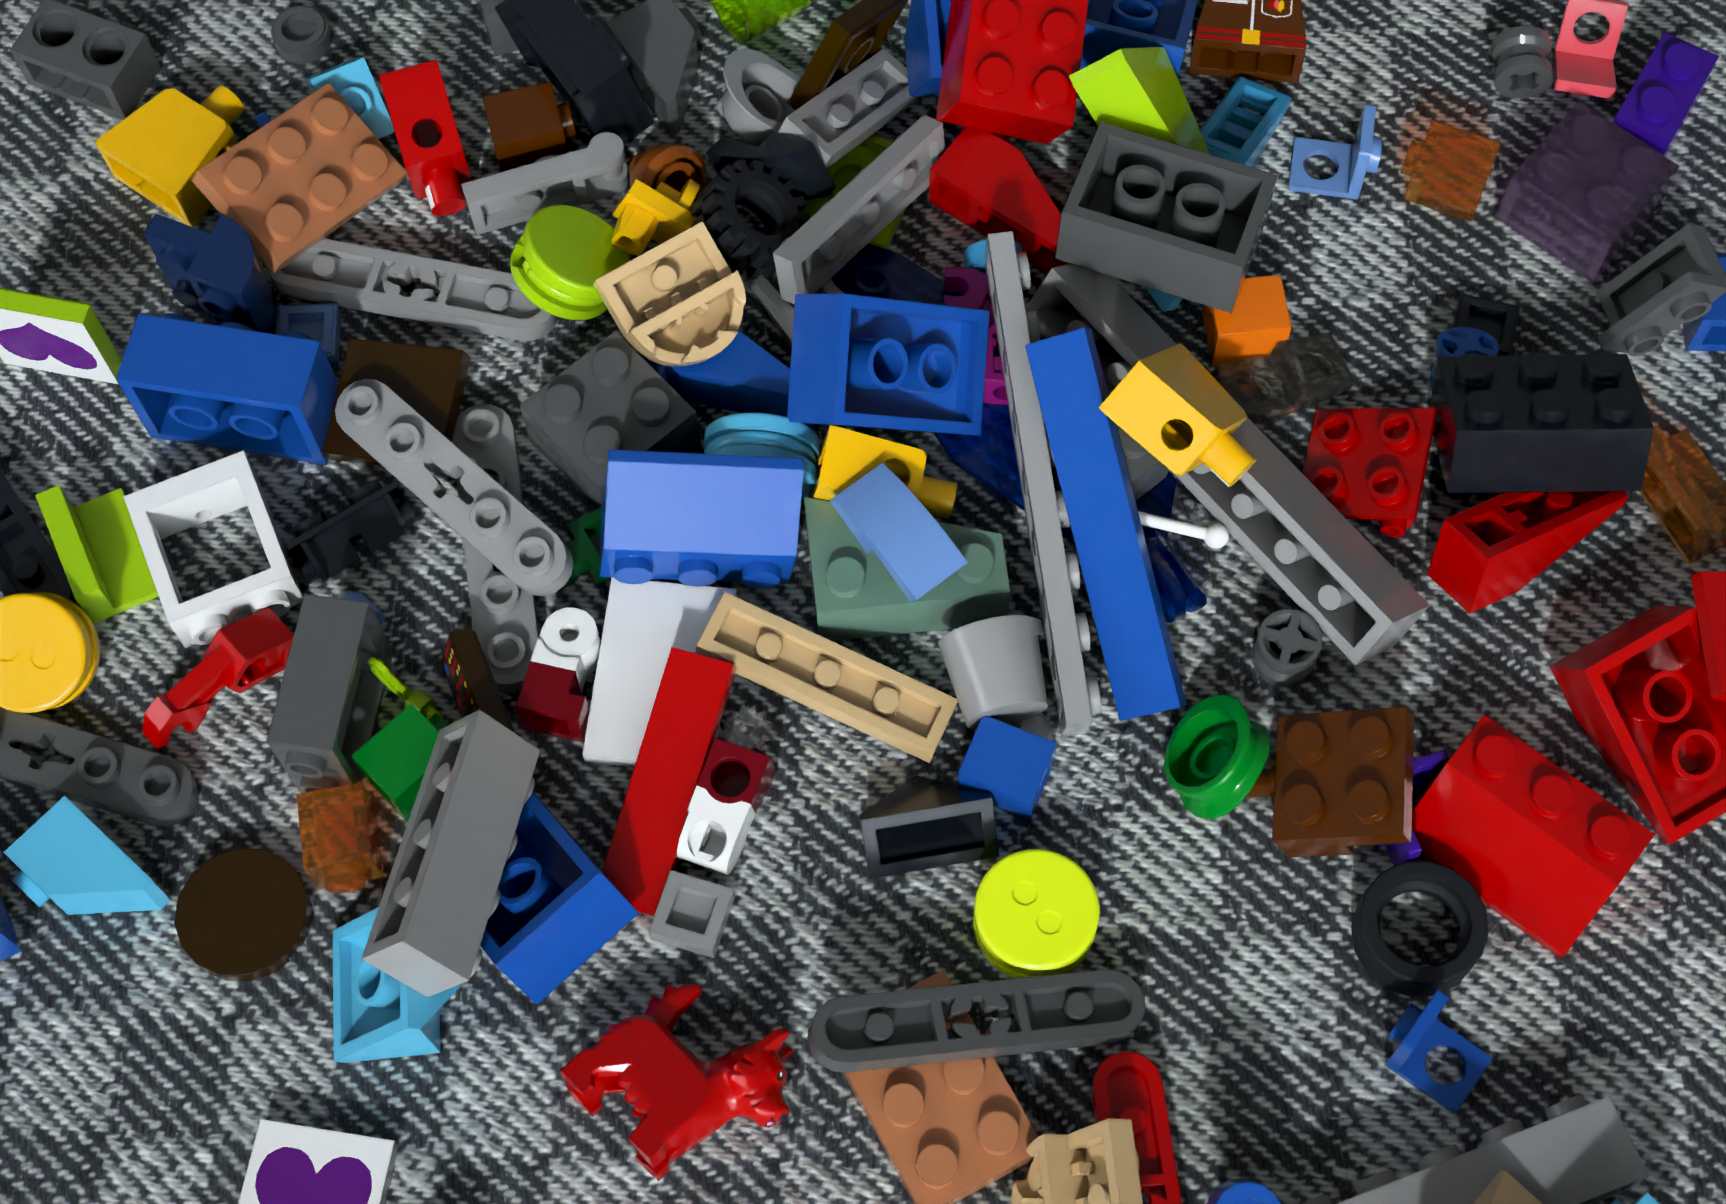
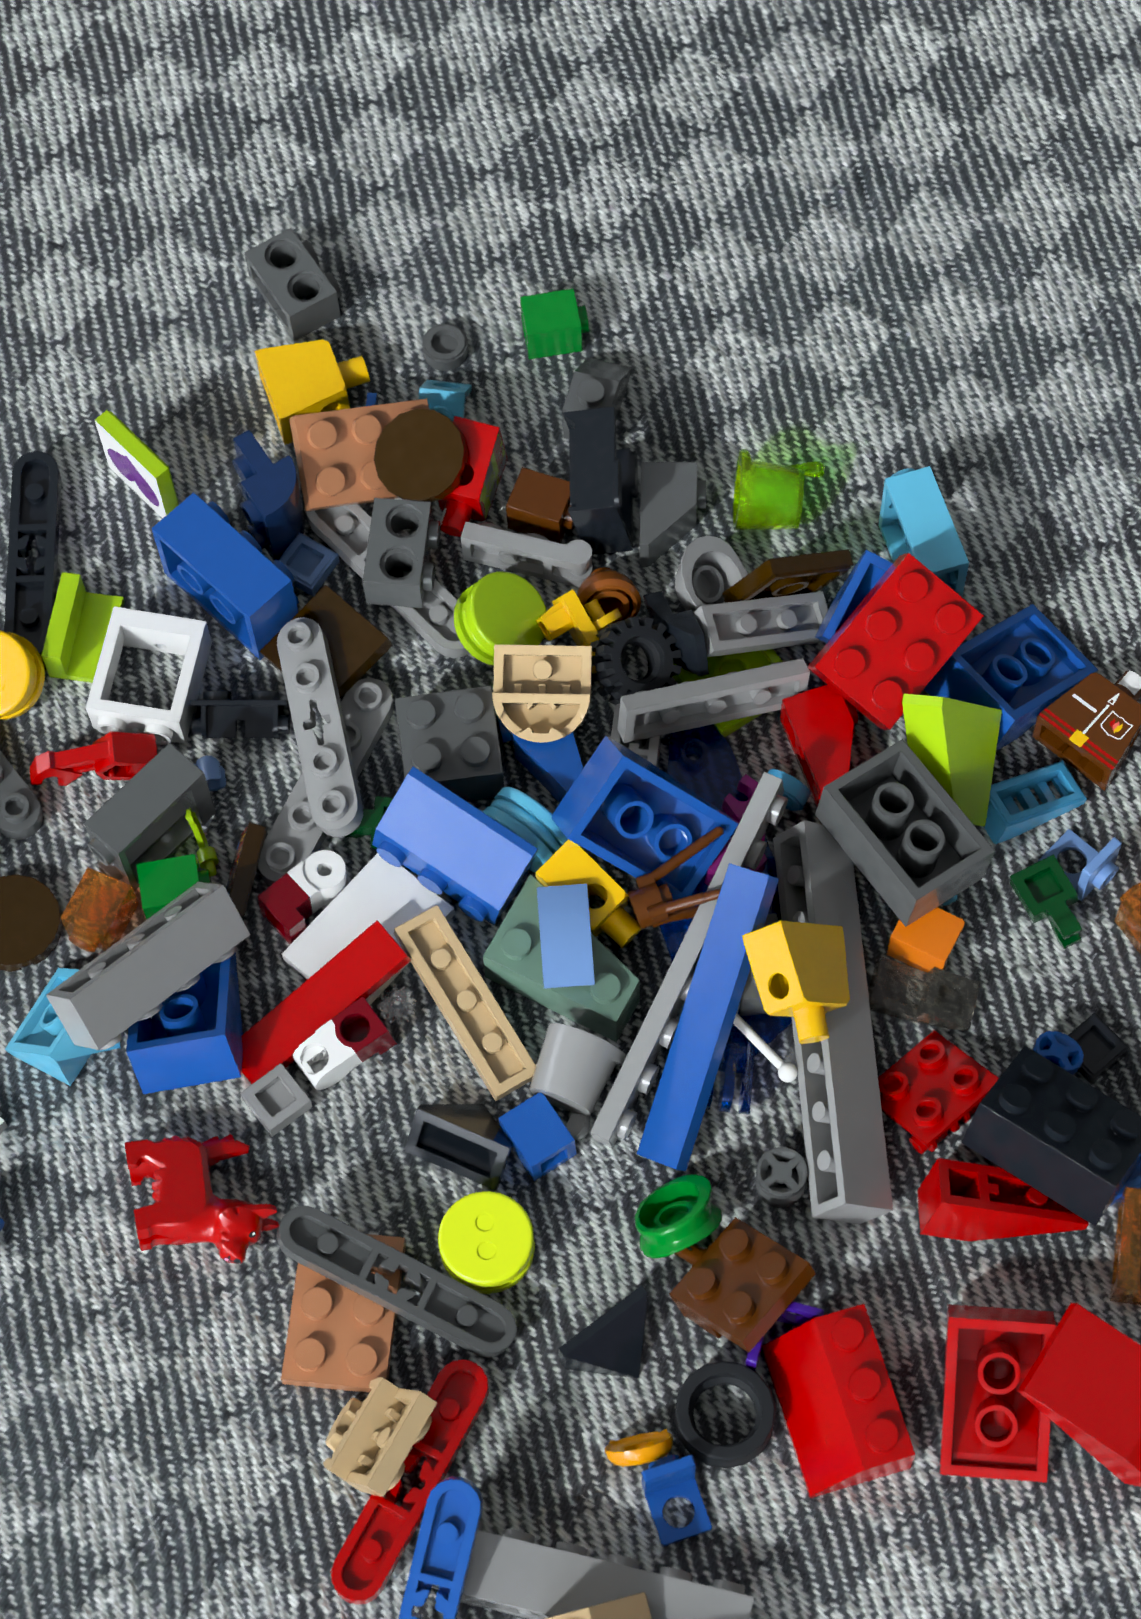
camera: 35 degrees right, 0 degrees up
(369, 137) = (421, 455): none -> dark brown tile
(409, 256) = (392, 553): none -> dark grey brick
(962, 444) = (654, 903): none -> reddish brown plant
(1249, 930) = (612, 1341): none -> black slope
(1329, 205) = (1048, 893): none -> dark green plate
(1363, 1023) = (639, 1448): none -> light orange piece

